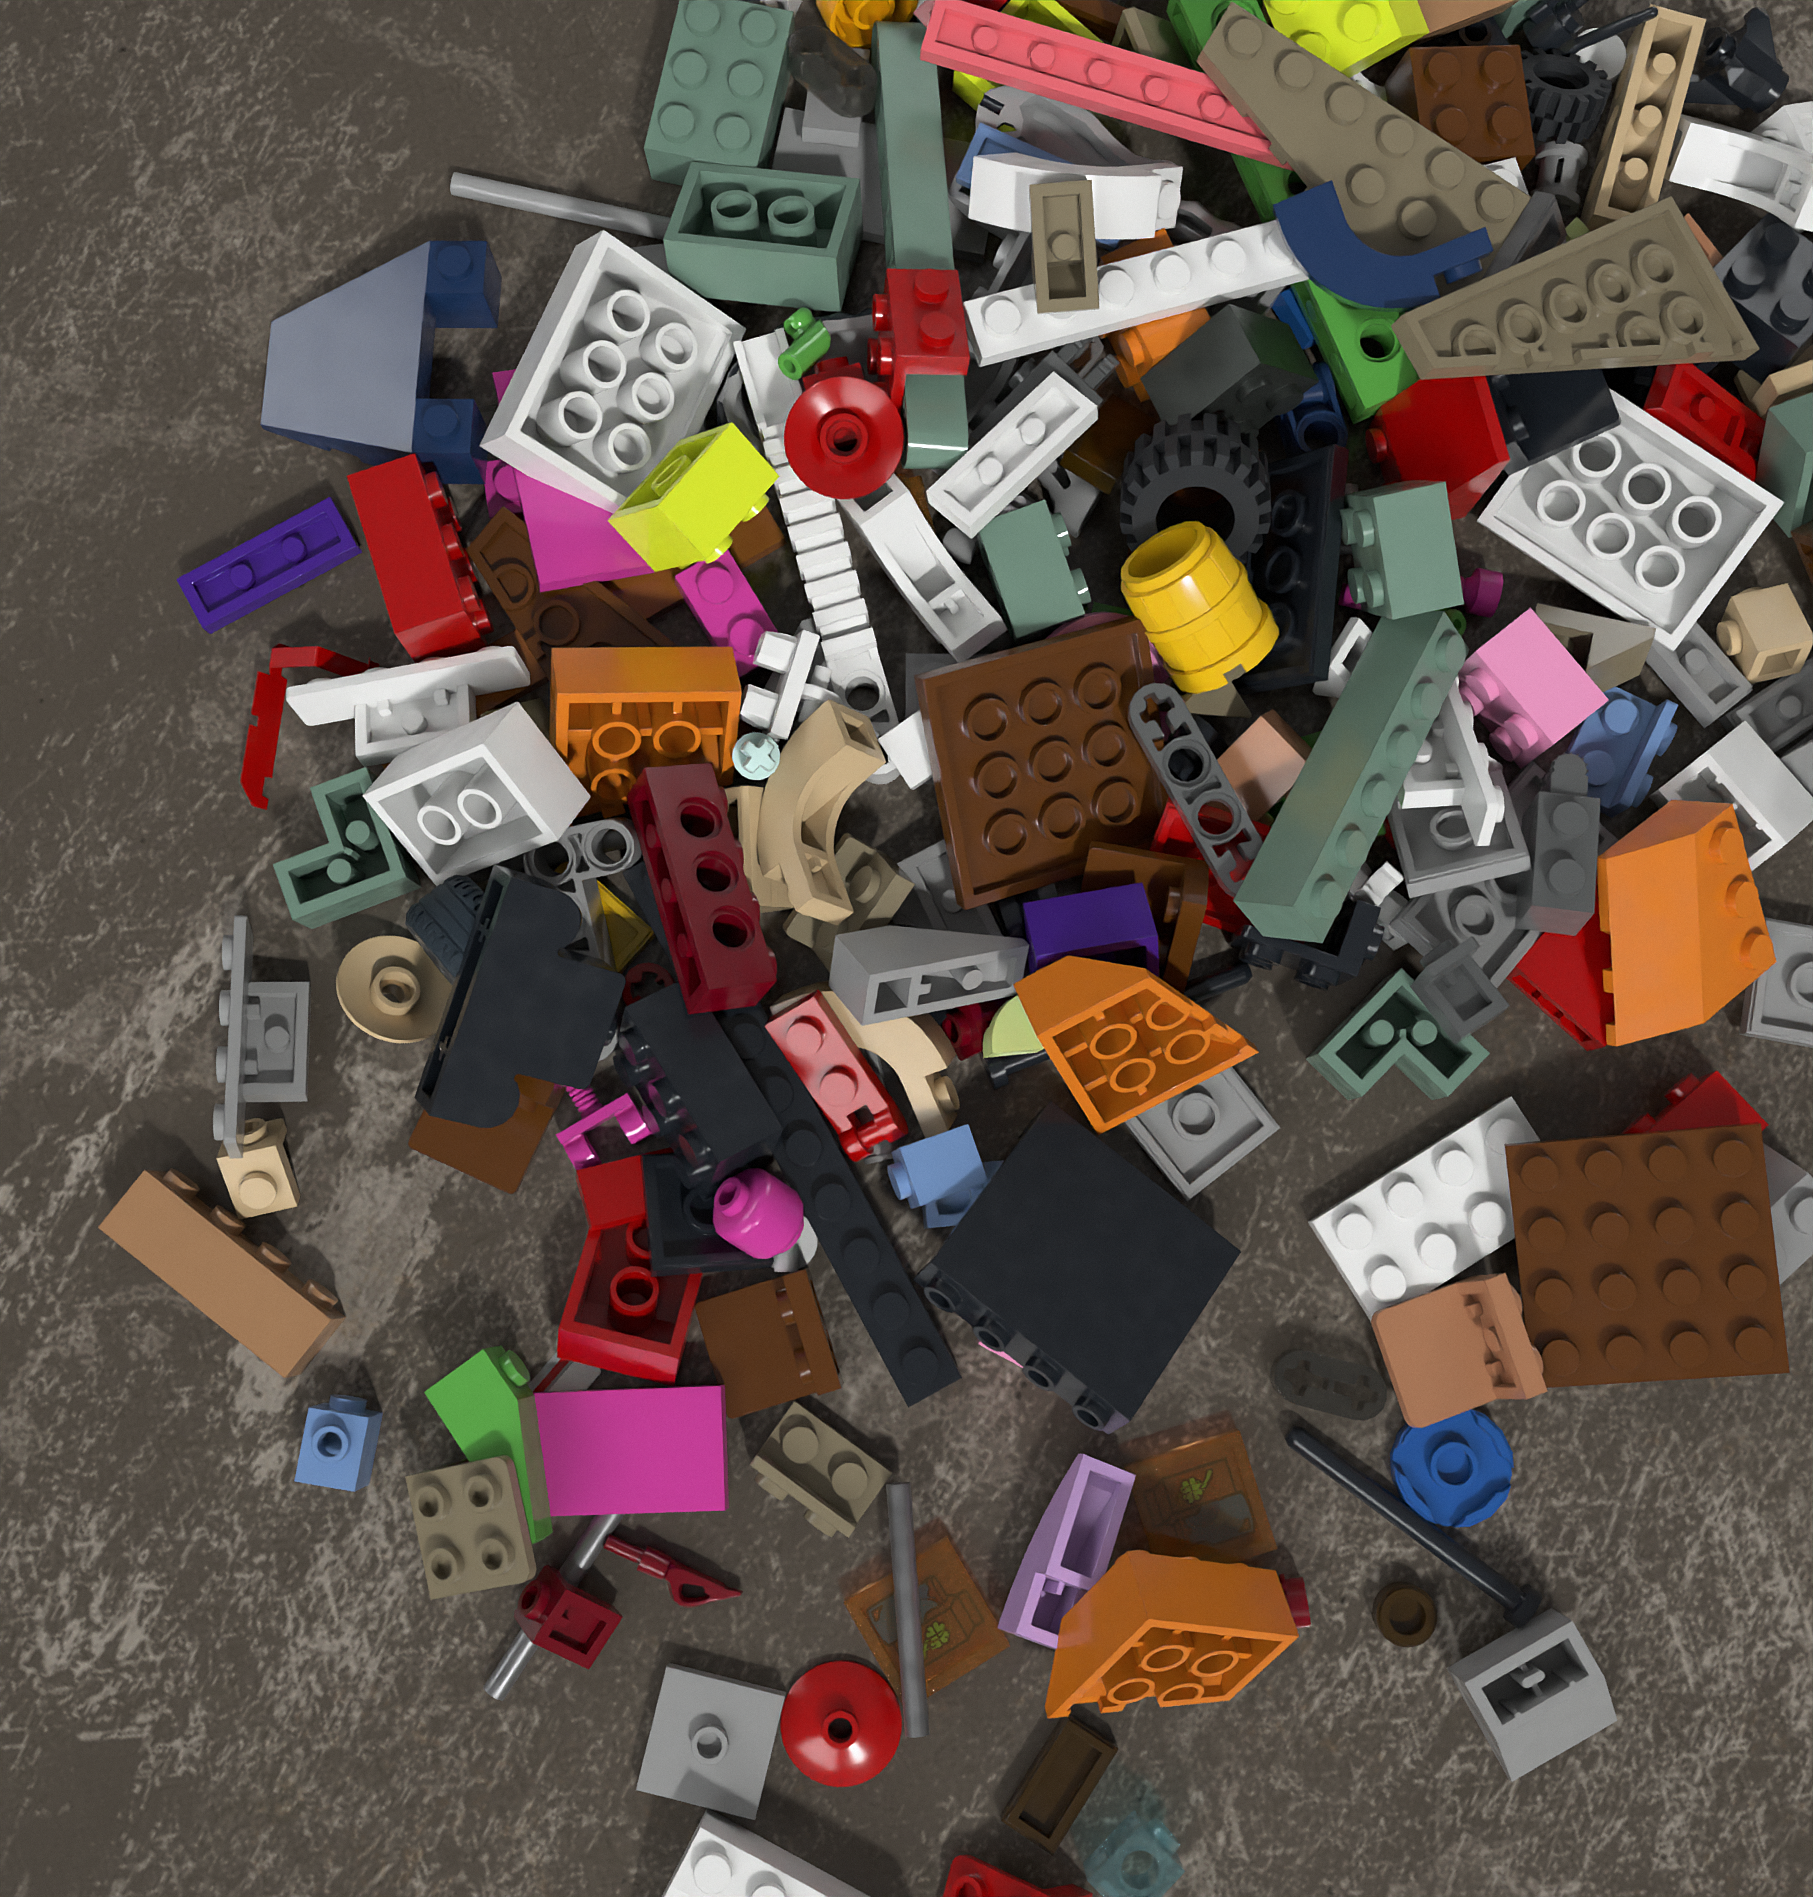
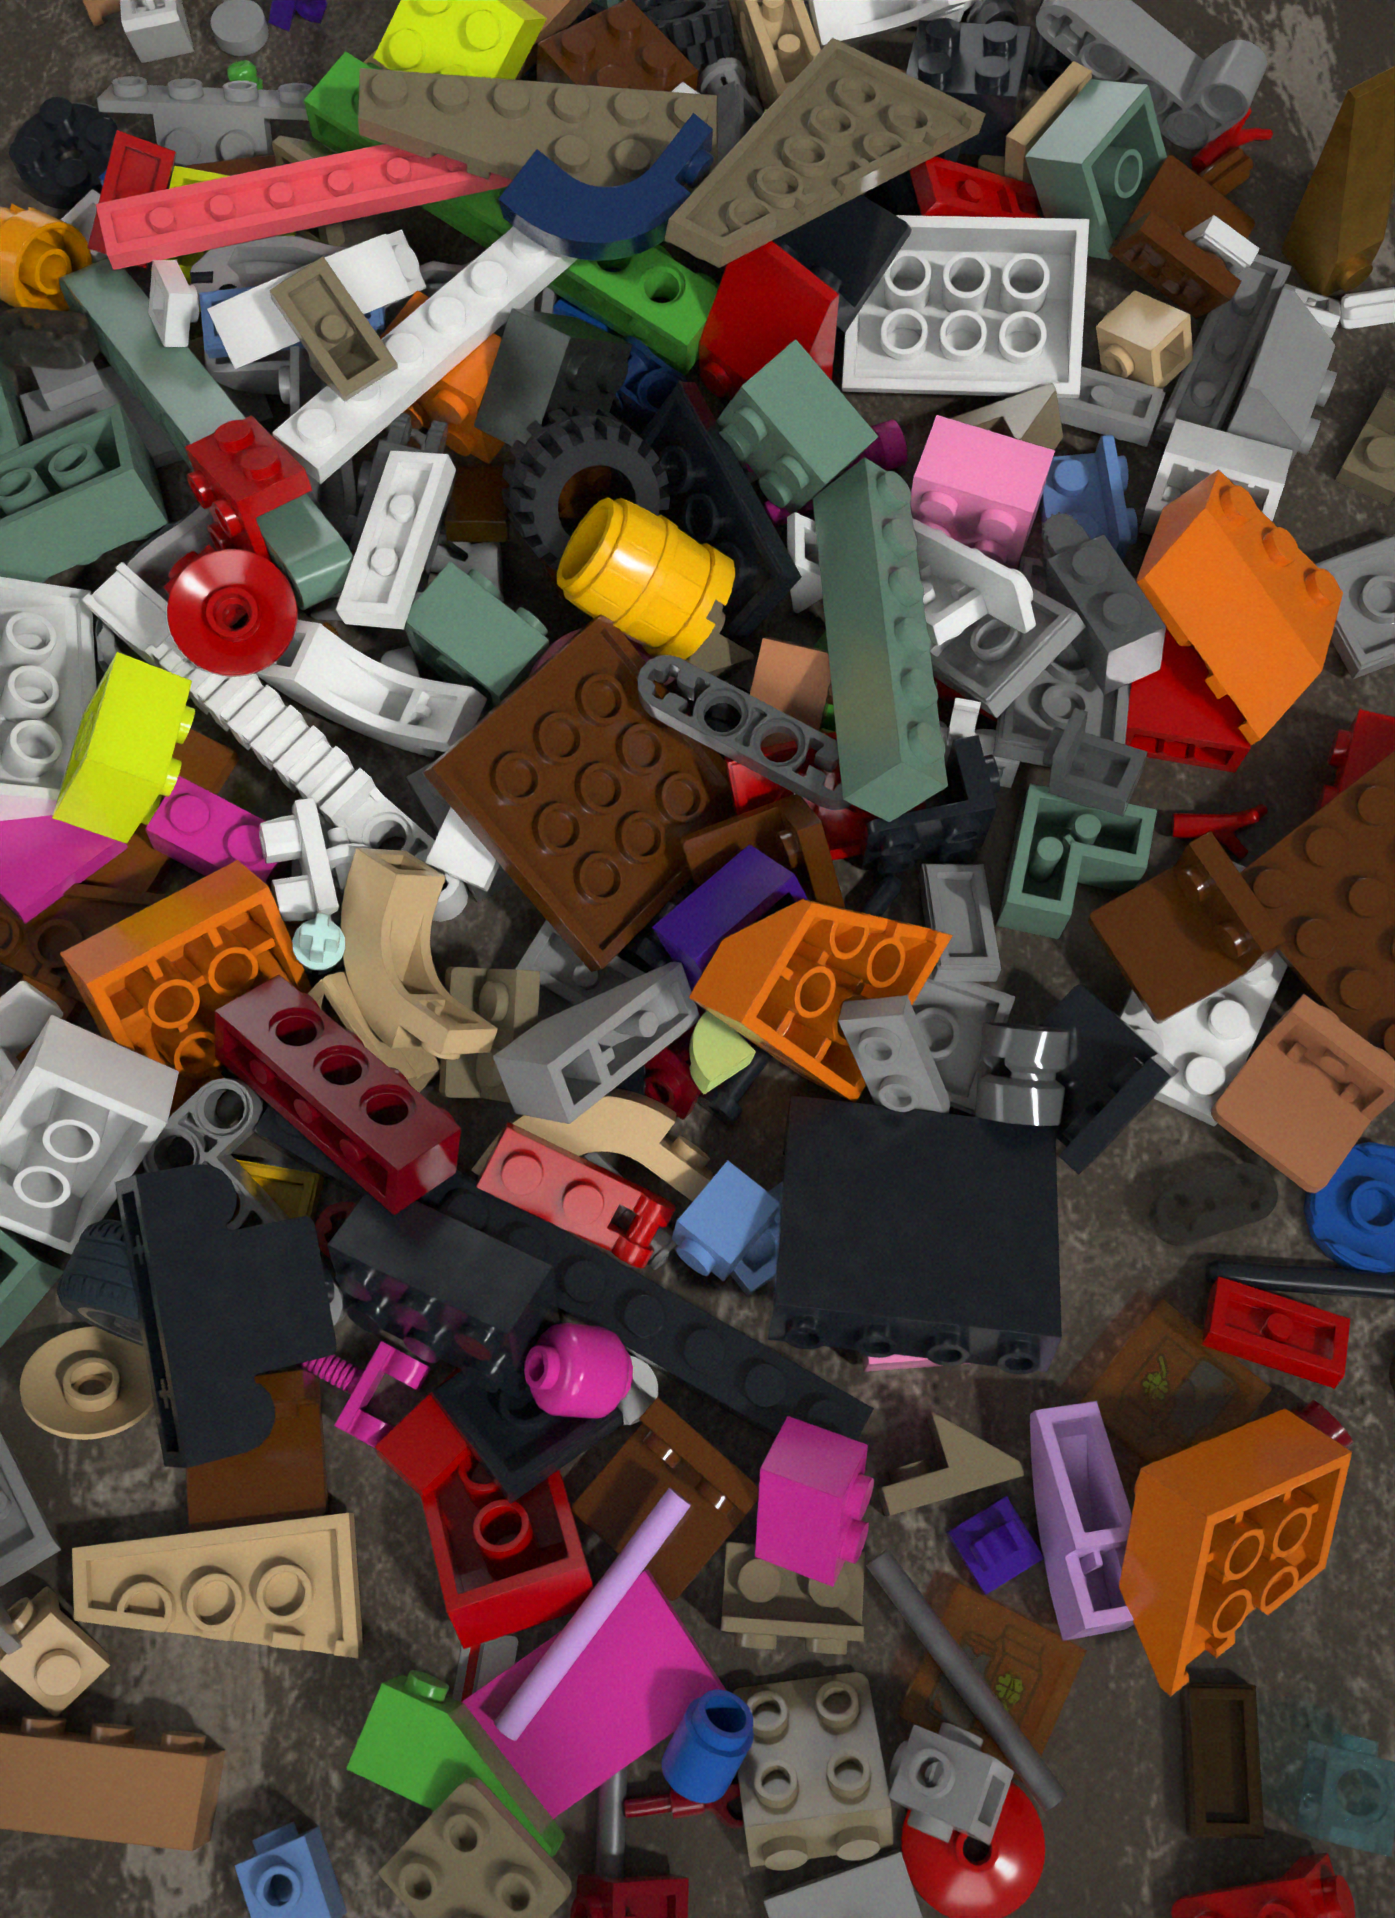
camera: 30 degrees left, 10 degrees down
(431, 1212) = (248, 1584): none -> tan wing
(665, 1392) = (592, 1614): none -> lavender bar
(690, 1539) = (708, 1746): none -> blue brick
(755, 1599) = (813, 1773): none -> dark tan bracket
(809, 343) = (152, 561): bright green arm -> none
(847, 1674) = (949, 1783): none -> light grey brick
(873, 1417) = (813, 1501): none -> dark pink brick
(952, 115) = (172, 303): none -> white plate
(992, 1528) = (994, 1545): none -> dark purple tile
(1004, 1462) = (965, 1466): none -> dark tan slope
(1147, 1122) = (893, 1054): none -> light grey hinge
(1241, 1195) = (1022, 1073): none -> dark grey wheel
(1281, 1033) = (959, 904): none -> light grey tile
(1292, 1226) = (1106, 1077): none -> black bracket
(1309, 1510) = (1276, 1332): none -> red plate
(1446, 1163) = (1187, 931): none -> reddish brown bracket
(1541, 1089) = (1221, 825): none -> red bar

